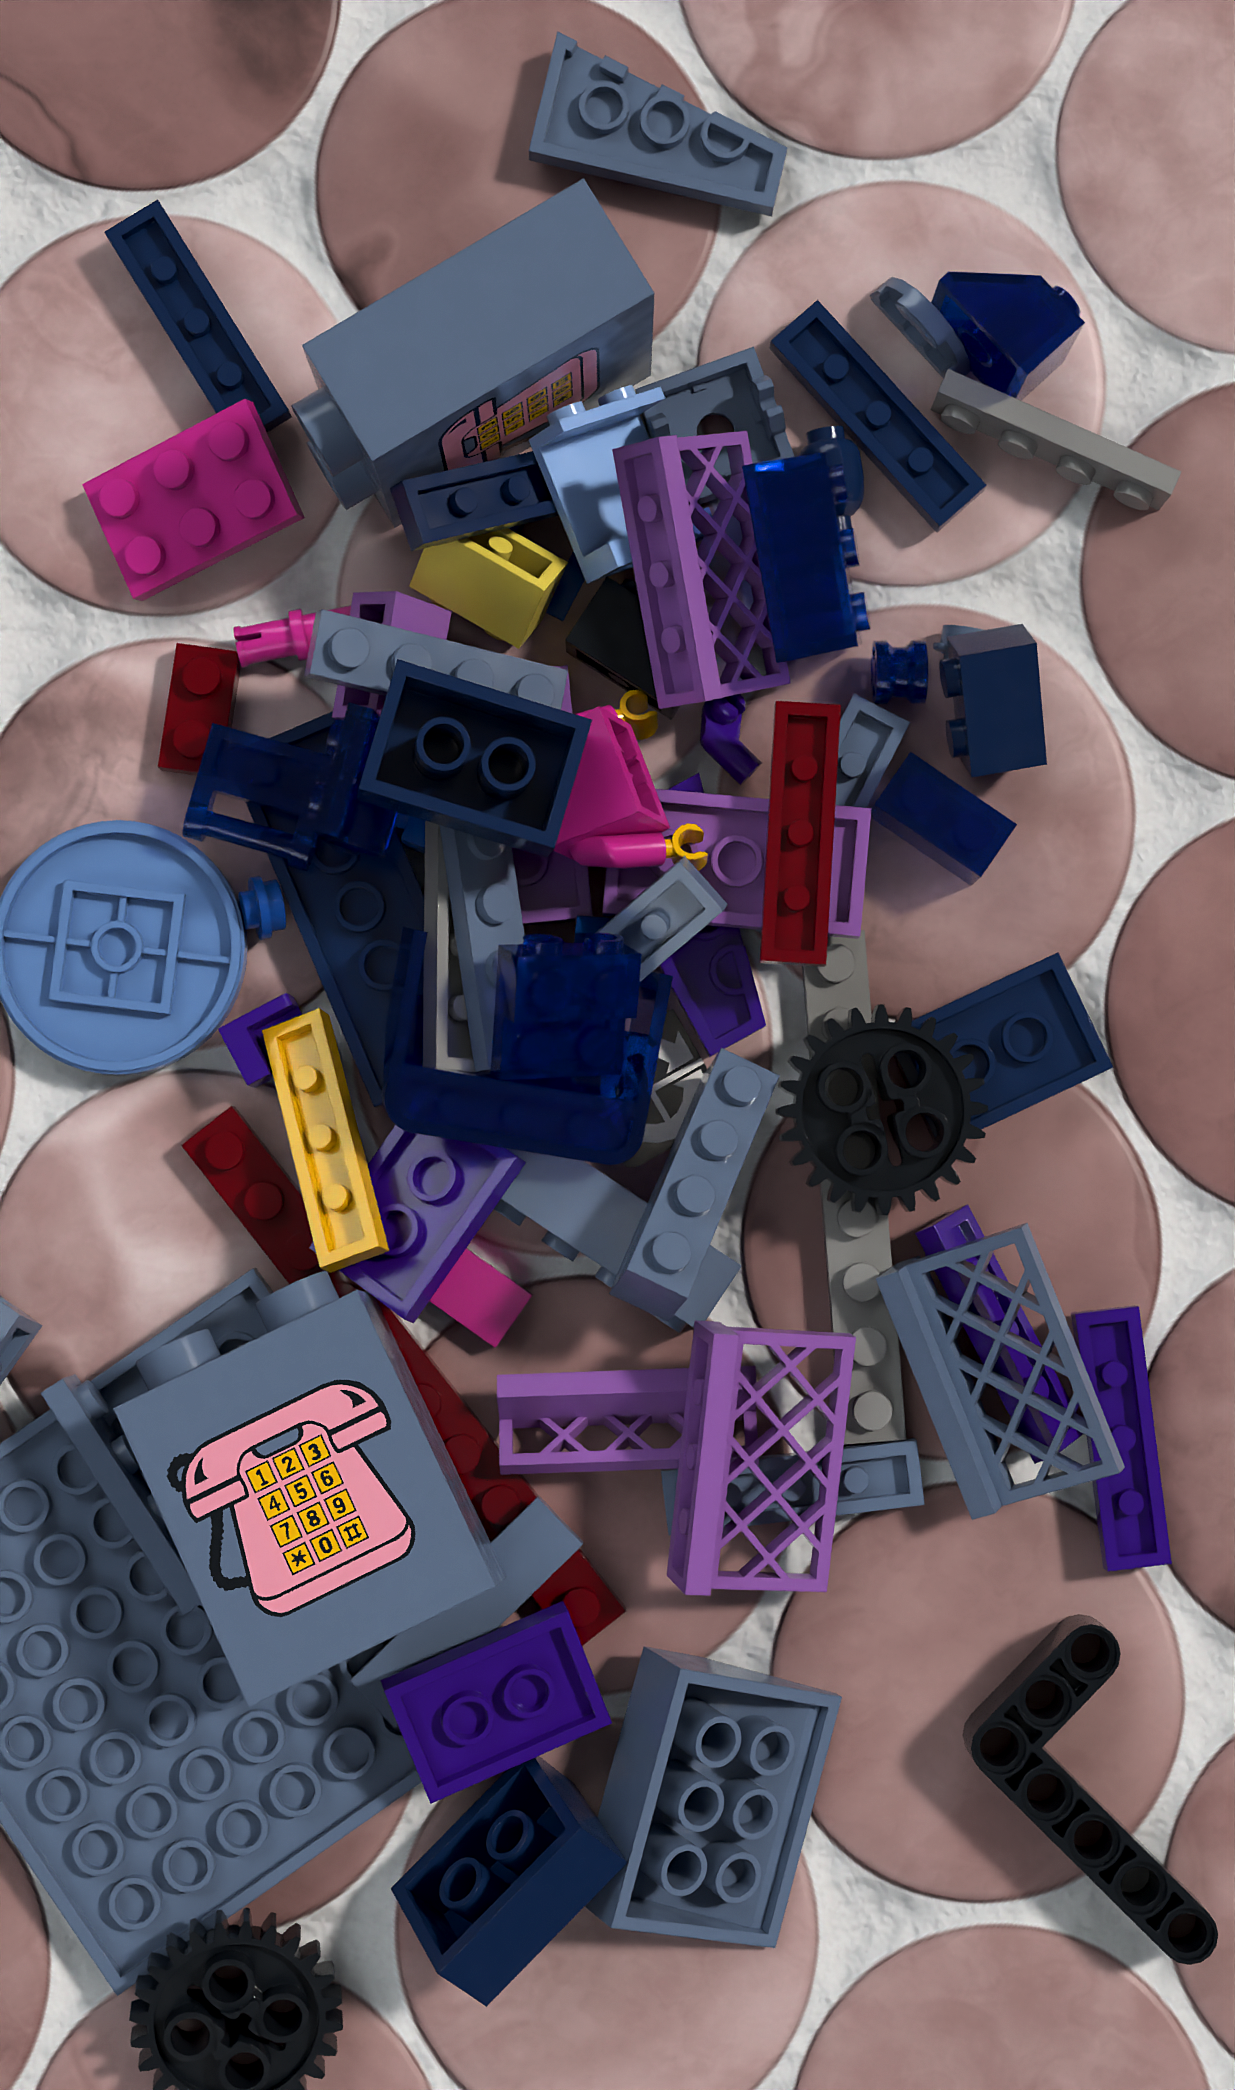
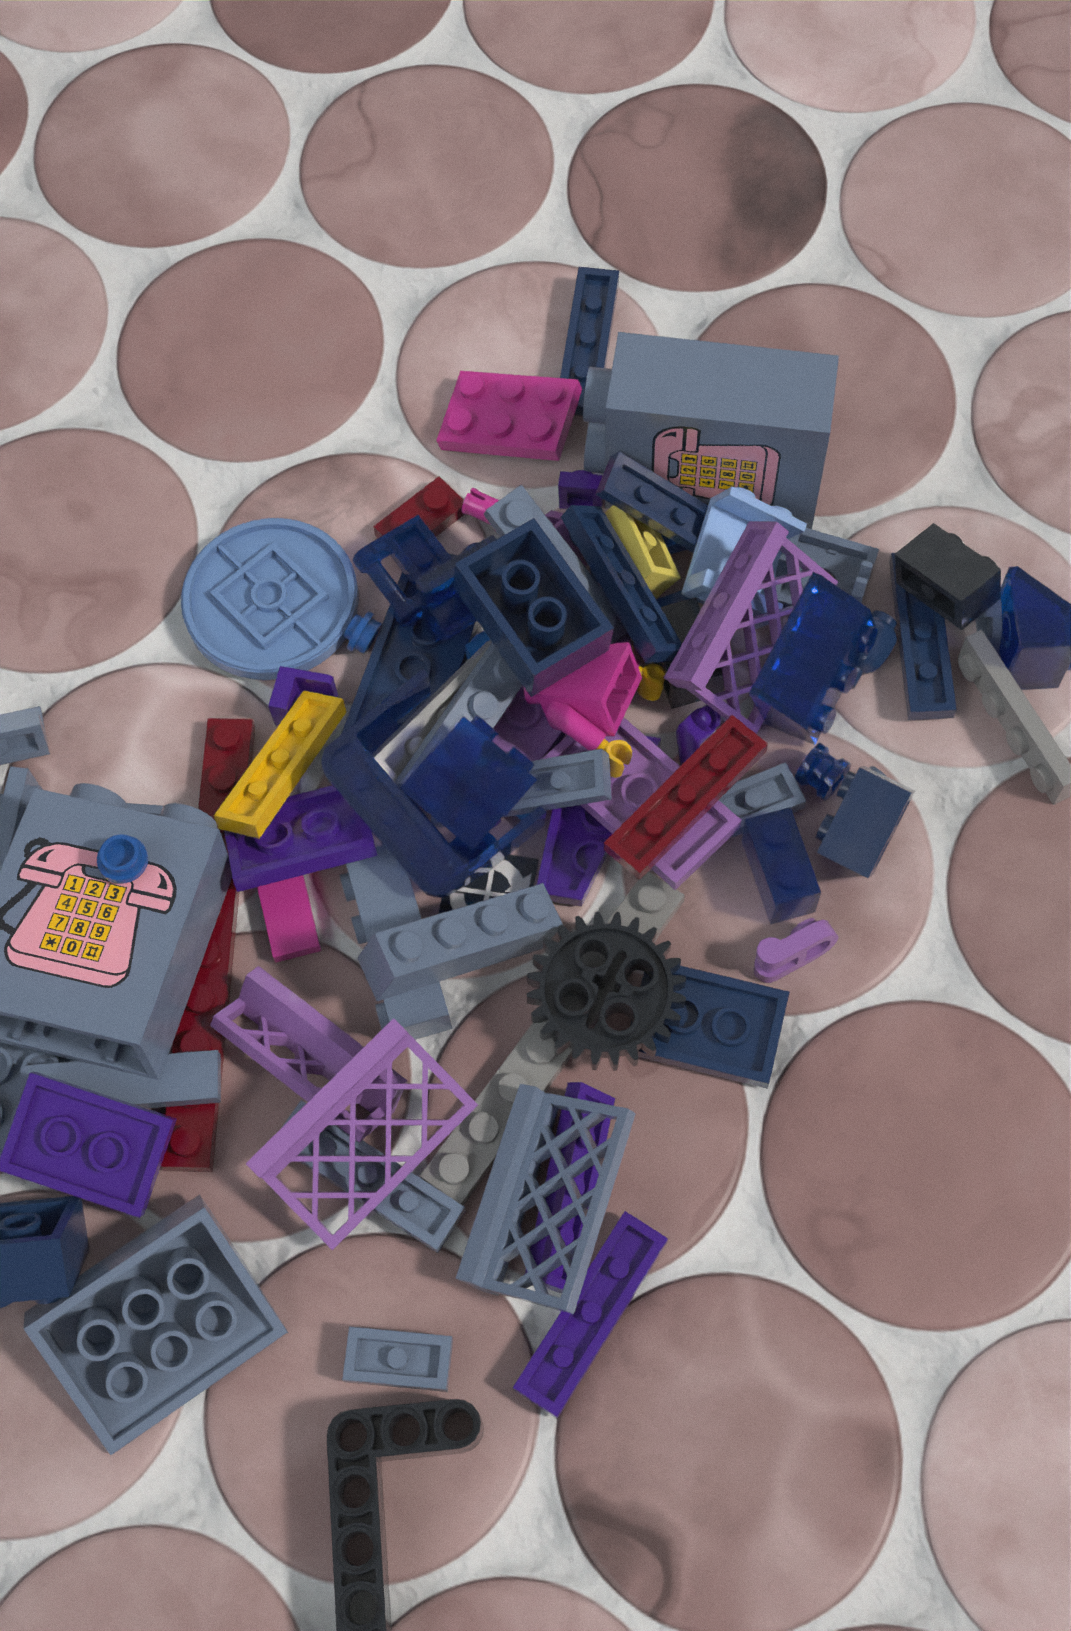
camera: 45 degrees right, 20 degrees down
(293, 1412) = (122, 859): none -> blue plate
(358, 532) = (578, 489): none -> dark purple plate
(522, 631) = (622, 583): none -> dark blue plate
(630, 131) = (901, 407): sand blue wing -> none
(868, 332) = (948, 576): none -> black brick
(974, 1634) = (398, 1359): none -> sand blue plate
(1031, 878) = (804, 944): none -> medium lavender plate

